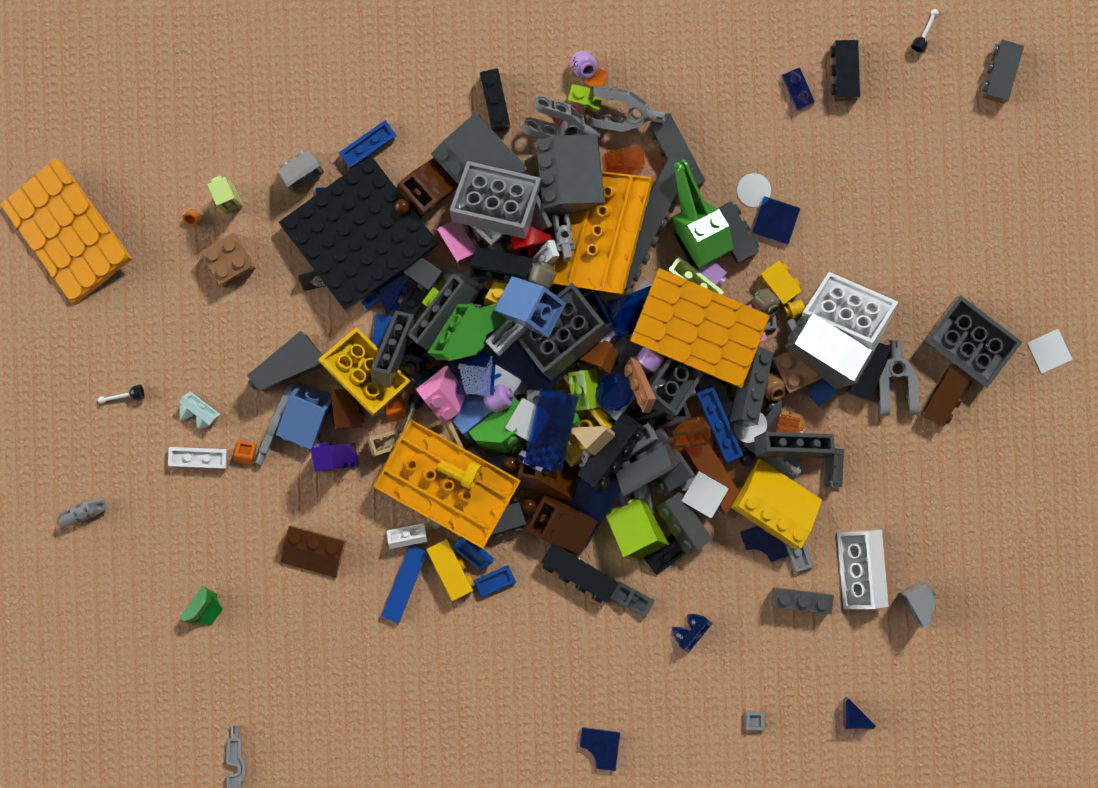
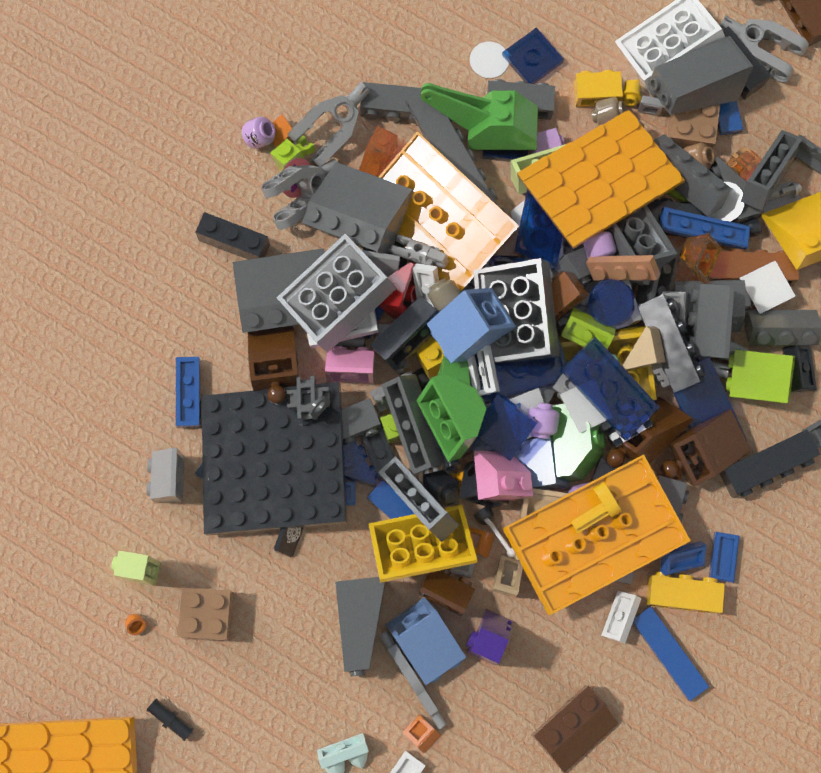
camera: 60 degrees left, 10 degrees down
(146, 283) = (170, 719): none -> black pin
(411, 235) = (314, 400): none -> dark grey piece

